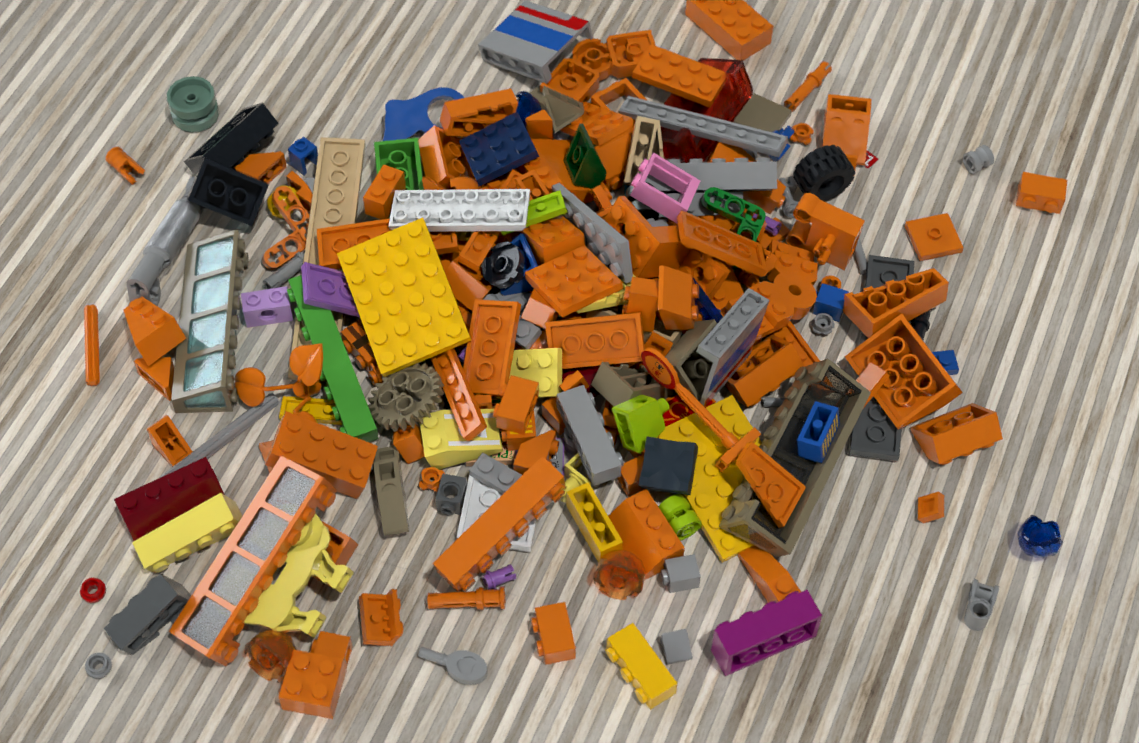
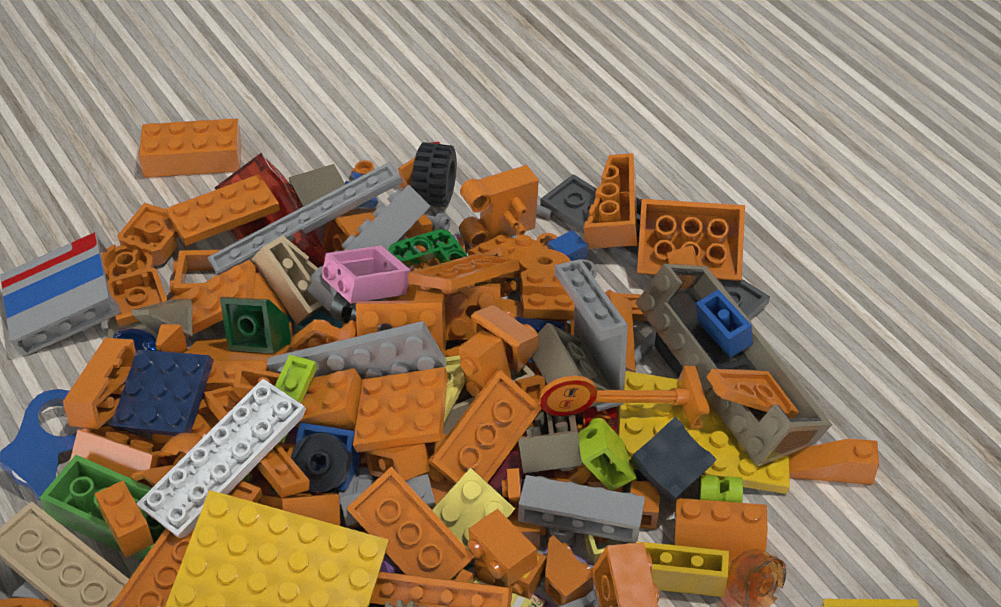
camera: 55 degrees left, 10 degrees down
(676, 646) = (862, 582): light grey slope -> none
(681, 573) = (784, 529): light grey brick -> none
(765, 632) = (901, 496): magenta brick -> none
(812, 81) = (316, 132): orange pin -> none
(847, 124) = (388, 135): orange slope -> none
(931, 507) = (836, 305): orange plate -> none
(933, 237) = (554, 151): orange plate -> none
(957, 433) = (772, 245): orange slope -> none
(977, 159) = (504, 80): light grey wheel -> none
(981, 601) = (959, 328): light grey piece -> none
(1039, 538) = (920, 252): clear blue hair -> none
(1041, 192) = (573, 63): orange brick -> none

